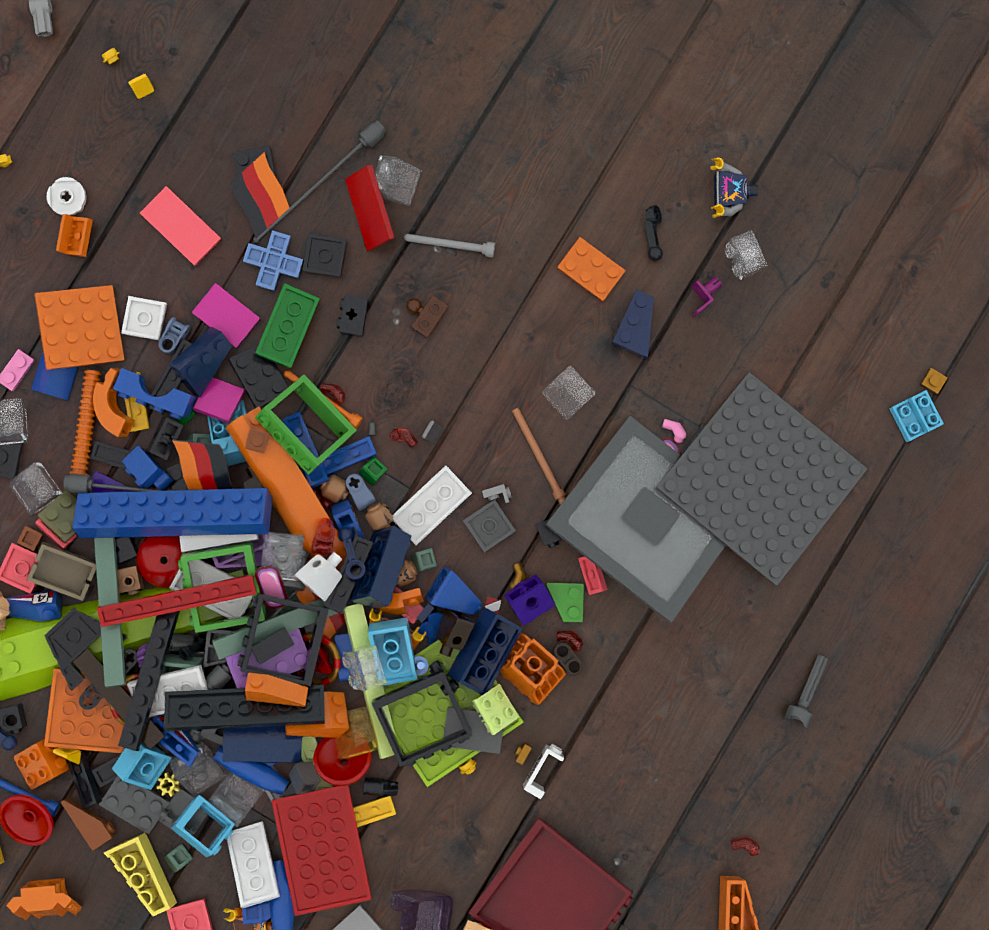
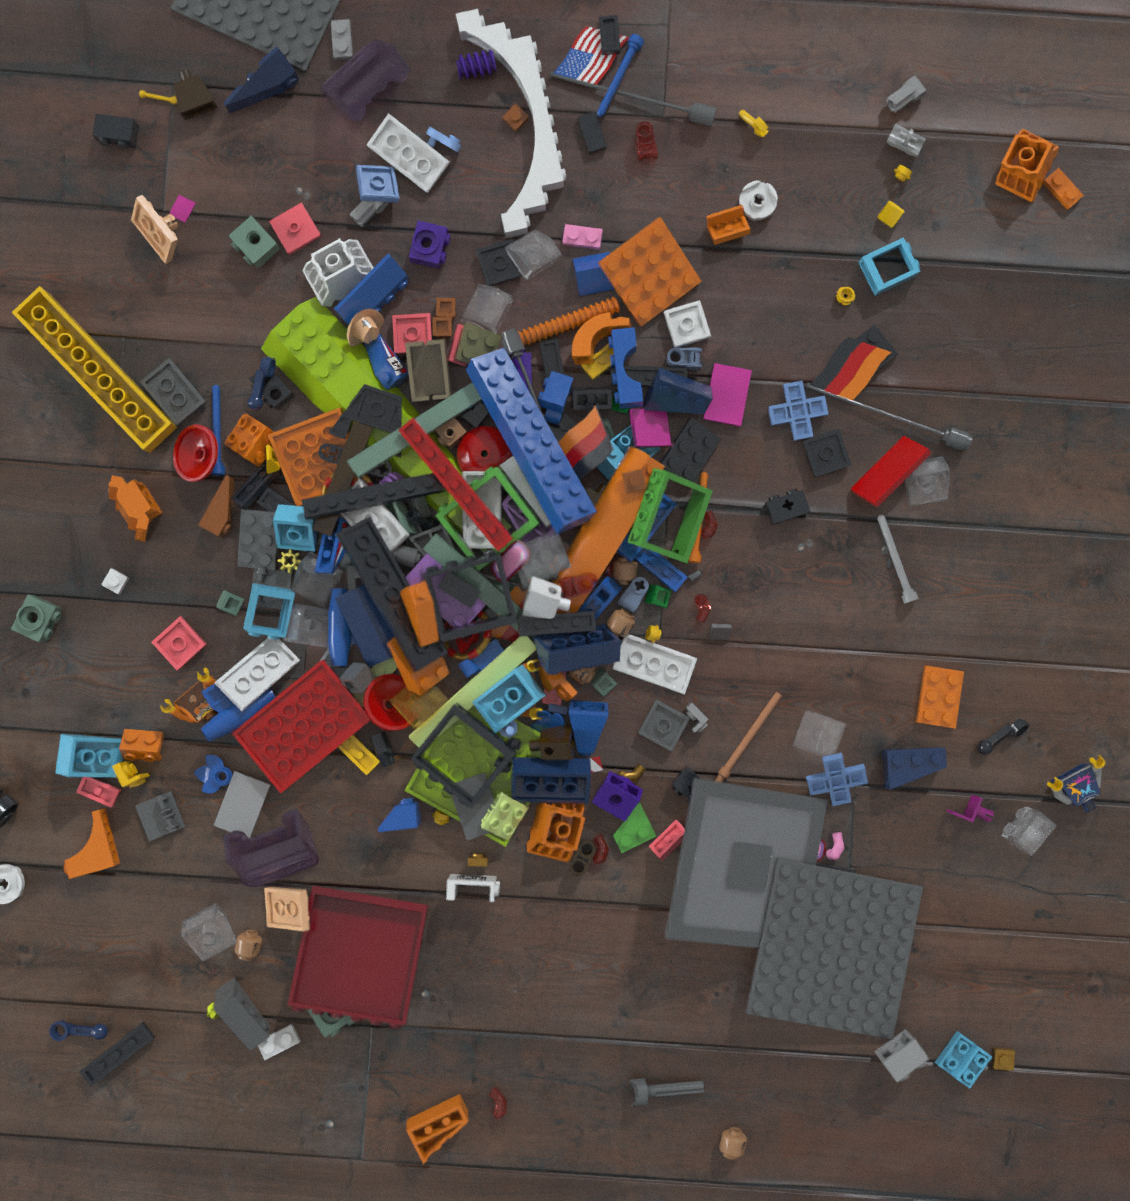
camera: 65 degrees right, 0 degrees up
(14, 525) = (446, 307): none -> dark orange plate
(82, 38) = (905, 140): none -> light grey hips
(143, 873) = (203, 577): light yellow wedge -> none
(180, 226) = (785, 313): coral tile -> none
(187, 131) = (872, 274): none -> medium azure window
(188, 164) = (850, 295): none -> yellow plate
(287, 326) = (747, 453): green plate -> none
(345, 535) = (589, 602): dark blue piece -> none
(364, 667) = (482, 681): clear brick -> none
(403, 492) = (653, 633): none -> yellow plate
(428, 315) = (822, 573): reddish brown plate -> none
(448, 799) = (403, 816): none -> blue slope
(615, 398) = (837, 779): none -> medium blue plate
(884, 468) = (902, 1055): none -> light grey brick
(885, 656) = (733, 1143): none -> medium nougat head

